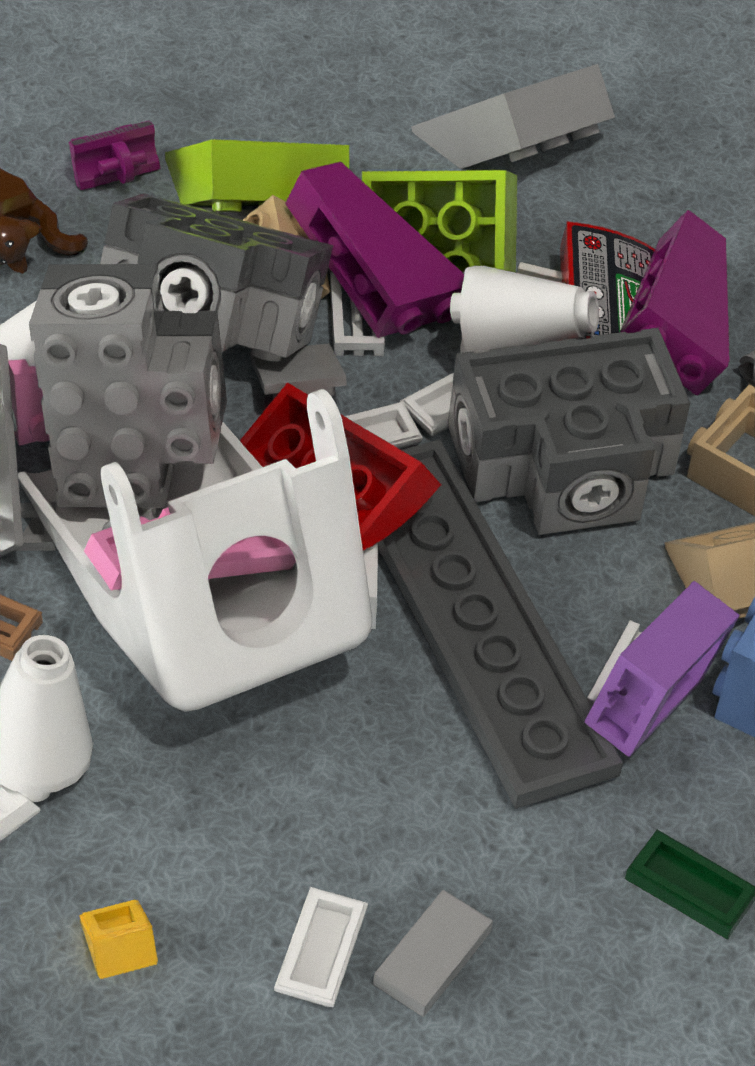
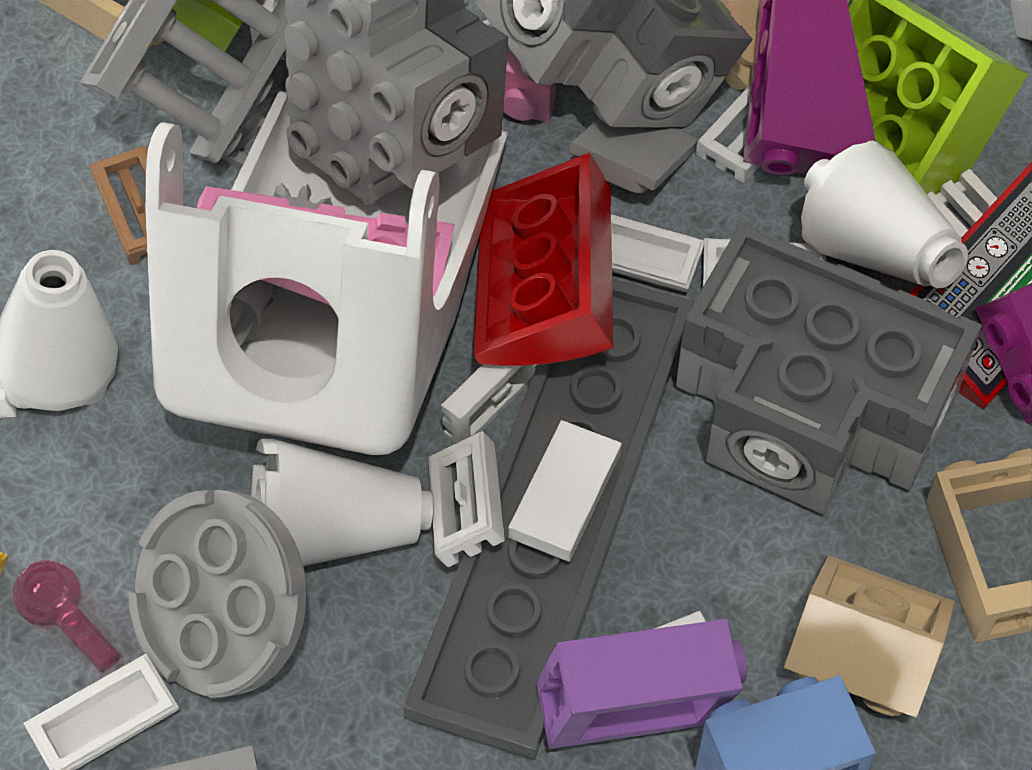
camera: 45 degrees right, 10 degrees up
(204, 899) = (50, 595): none -> clear pink plate
(336, 714) = (338, 503): none -> white cone
(336, 803) = (218, 593): none -> light grey tile
(456, 665) = (476, 493): none -> white tile
(485, 598) = (565, 490): none -> white tile

